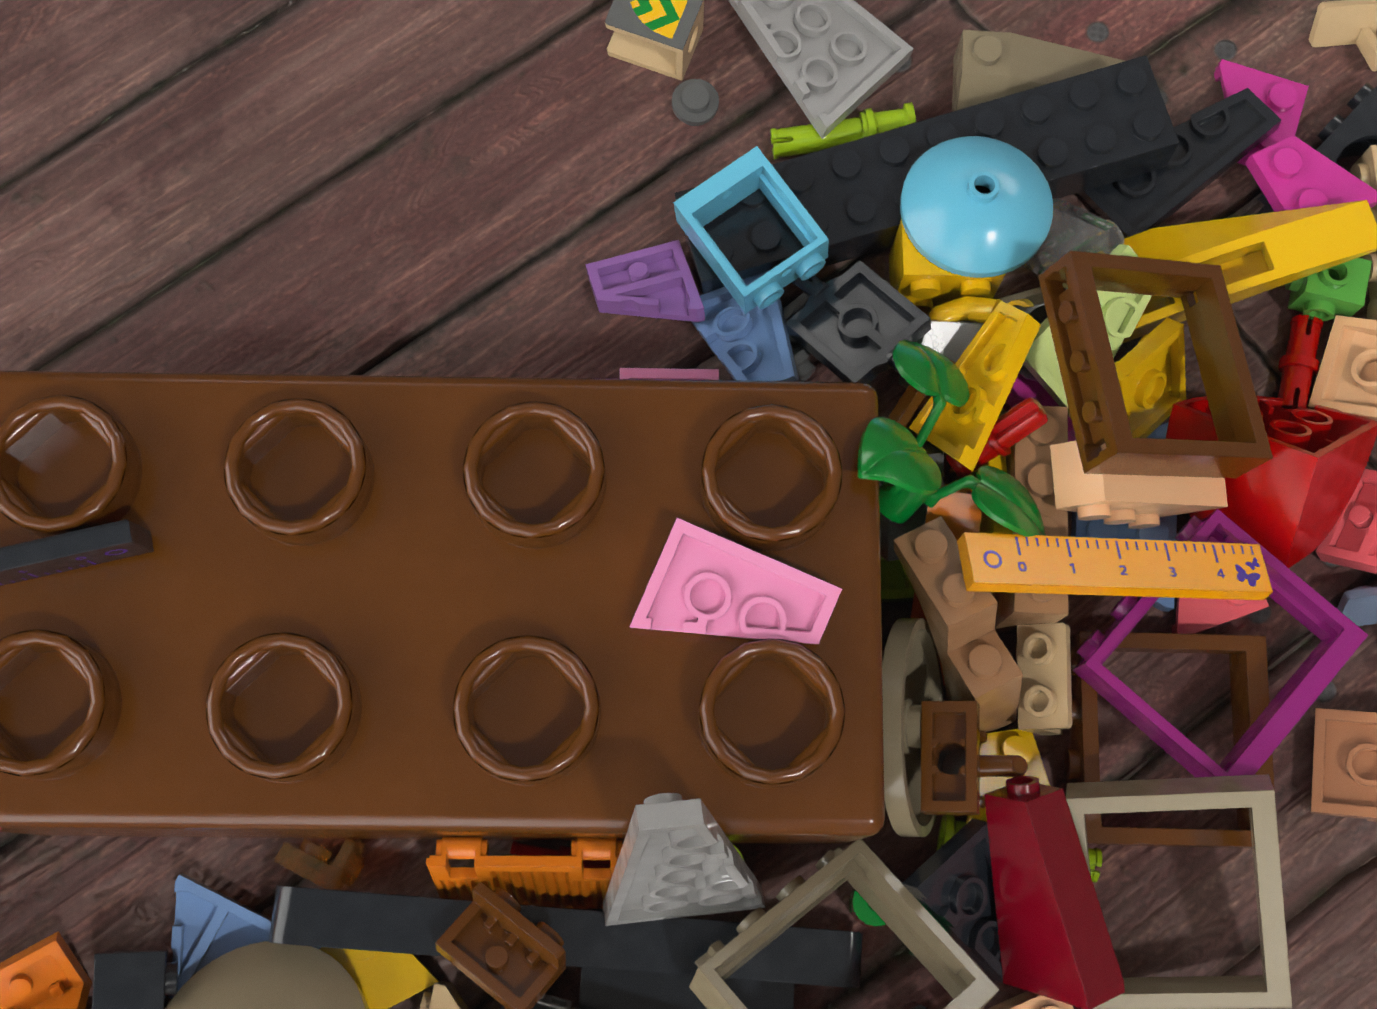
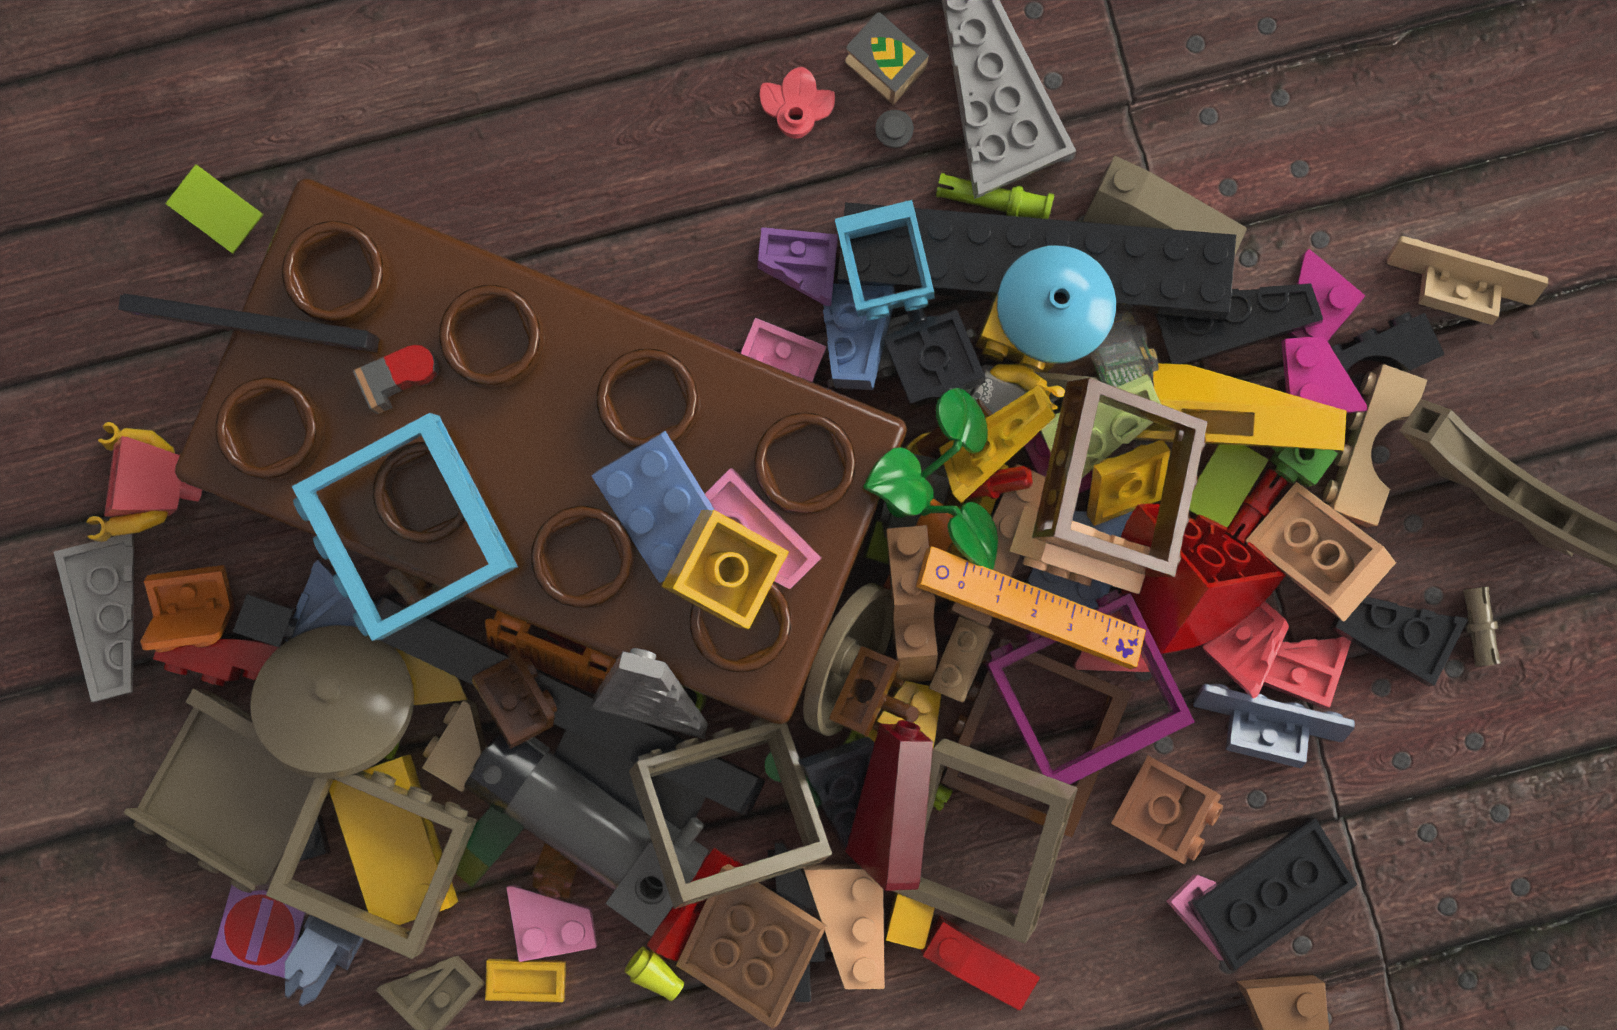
camera: 20 degrees right, 10 degrees up
(175, 827) = (463, 490): none -> medium azure window
(188, 566) = (394, 374): none -> leg
(570, 115) = (796, 97): none -> coral plate
(608, 601) = (654, 500): none -> medium blue plate
(729, 640) = (725, 569): none -> yellow brick
(1263, 338) = (1226, 482): none -> lime piece

